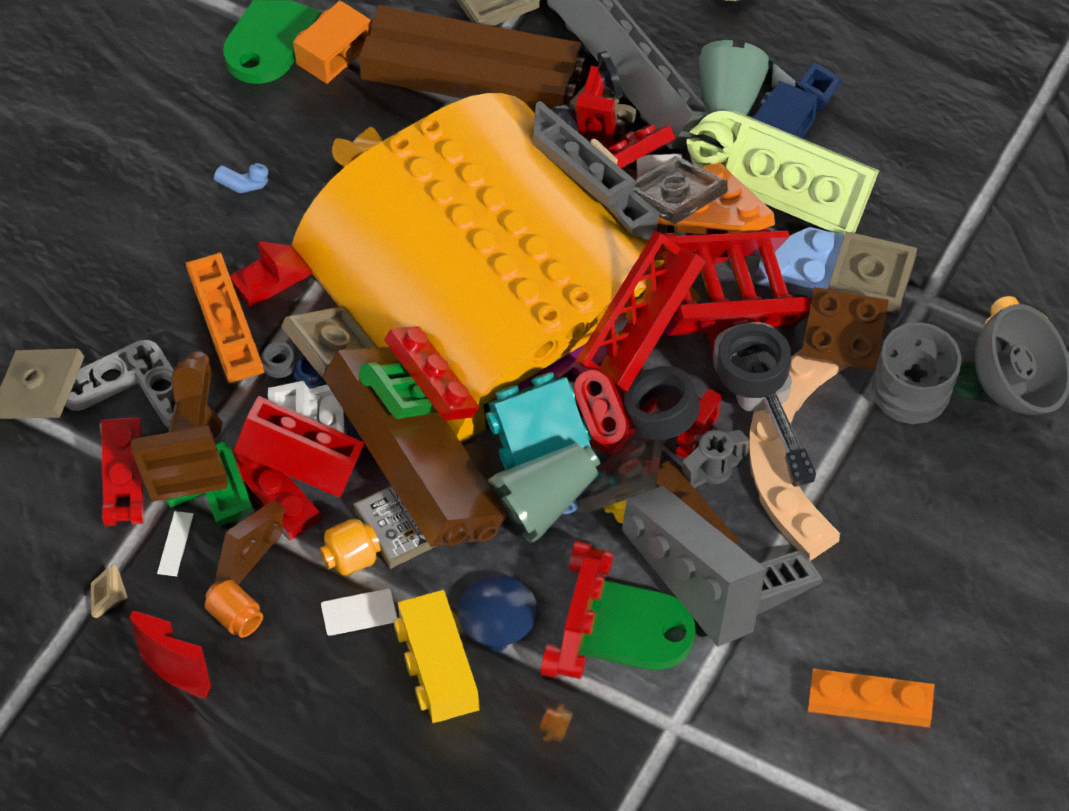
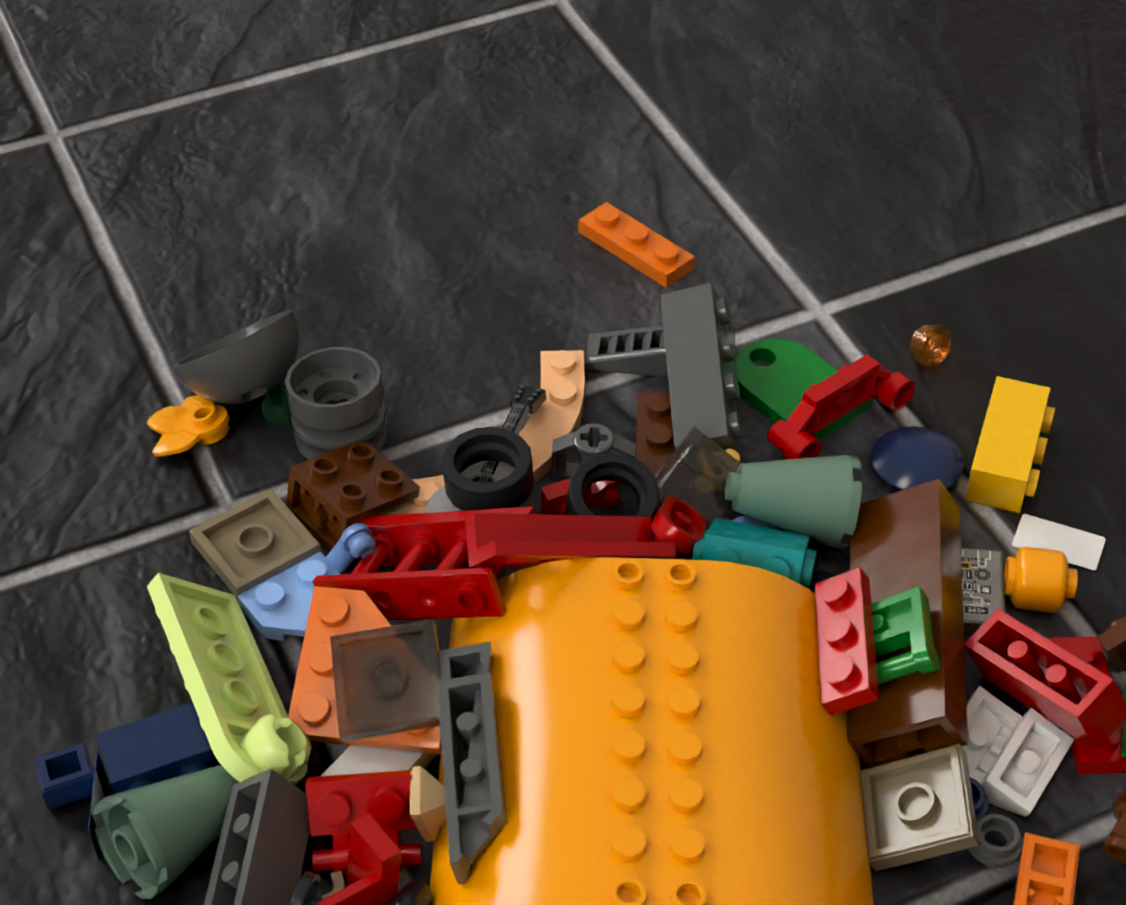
camera: 145 degrees left, 10 degrees down
(796, 280) = (354, 543): none -> medium blue arm

